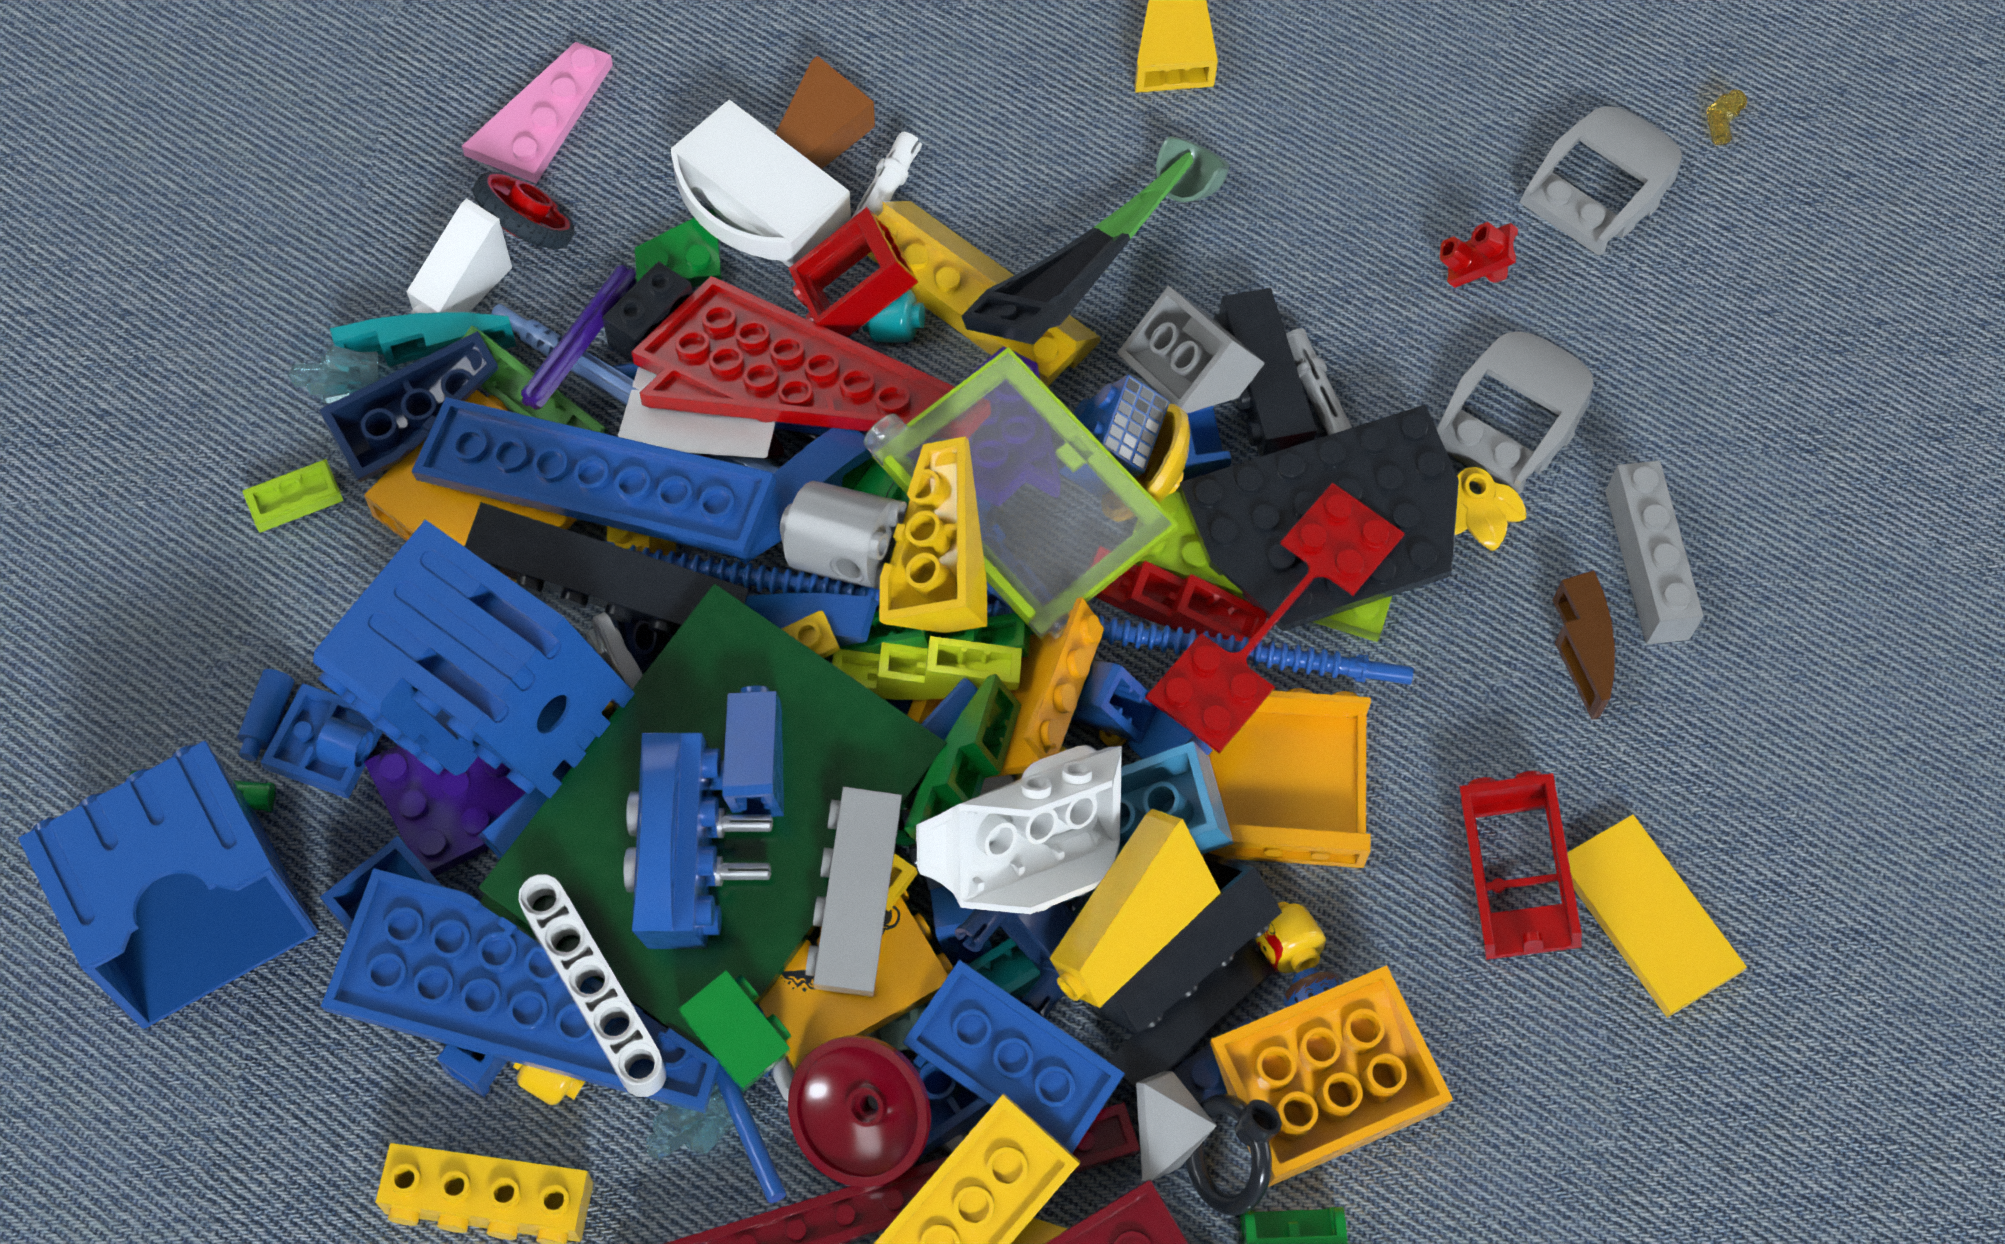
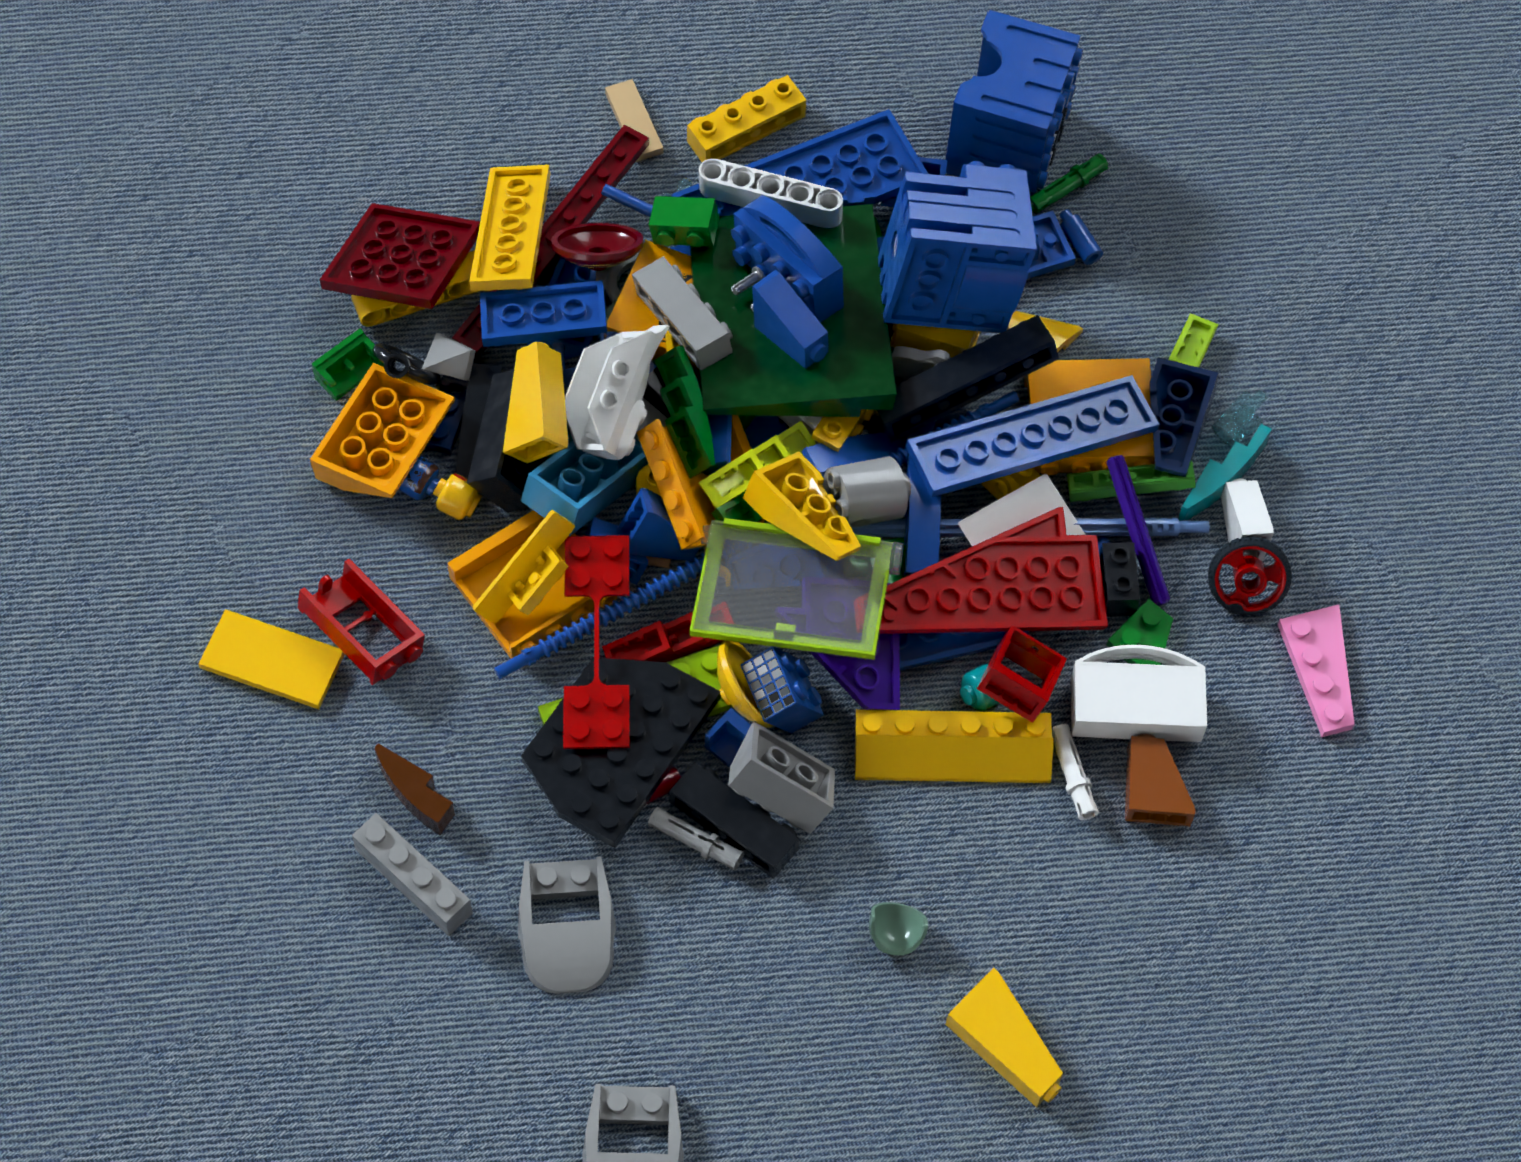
camera: 140 degrees right, 0 degrees up
(1050, 289) = (898, 736): black plate -> none
(1289, 739) = (528, 572): none -> yellow bracket
(1485, 254) = (666, 1002): red hips -> none
(1488, 512) = (534, 832): yellow plate -> none

